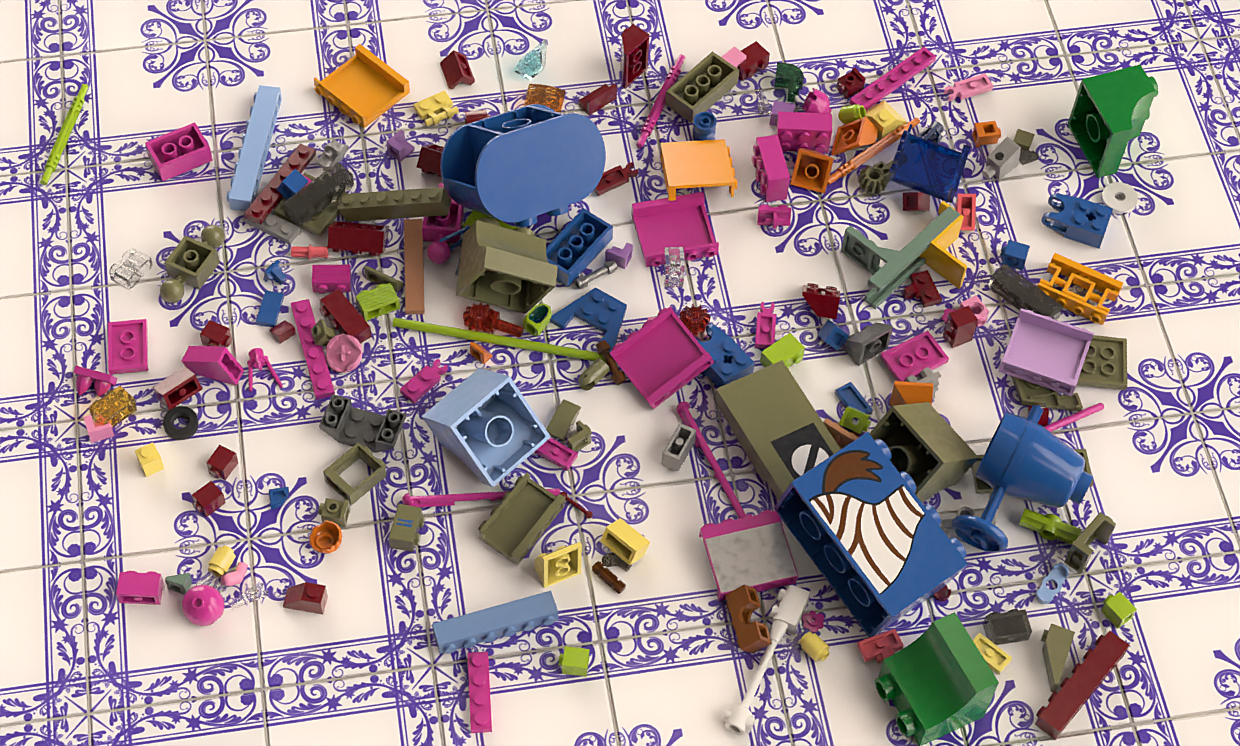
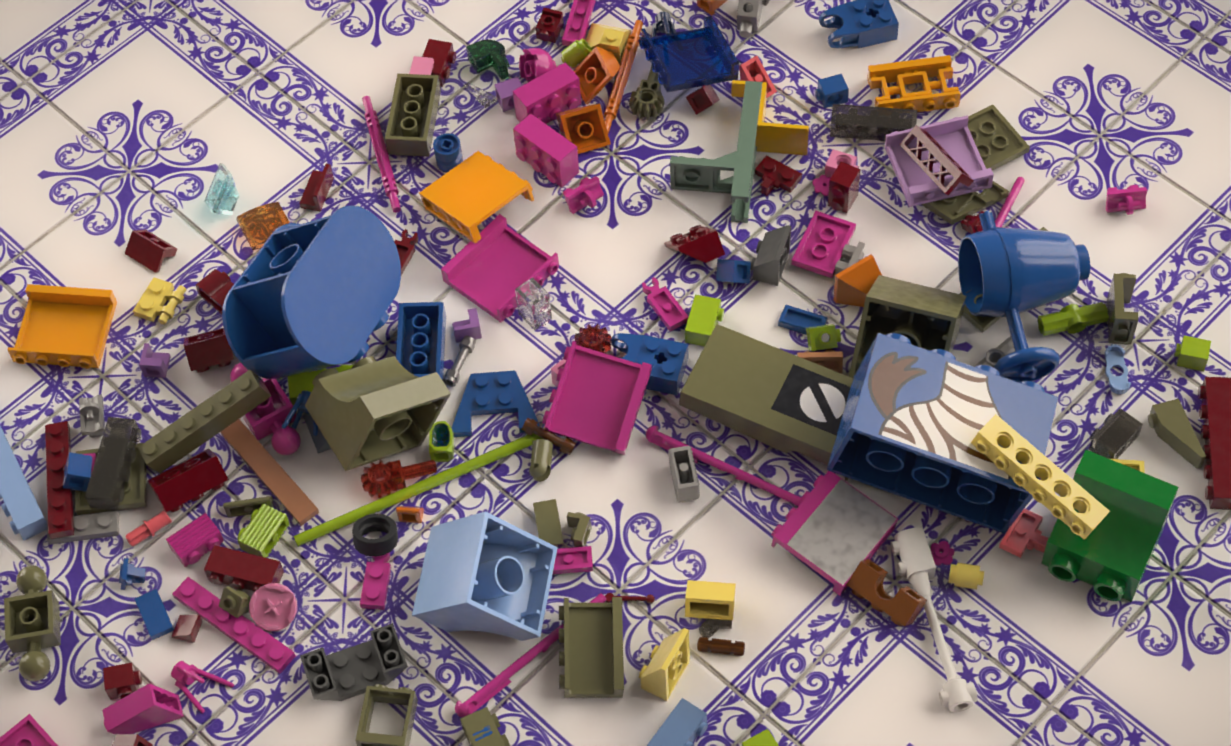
camera: 30 degrees left, 0 degrees up
(446, 341) = (373, 523): none -> black tyre
(633, 54) = (321, 123): dark red slope -> none
(895, 554) = (1052, 477): none -> light yellow brick
(1045, 346) = (937, 151): none -> fence
(1167, 470) = (1126, 199): none -> dark pink hips

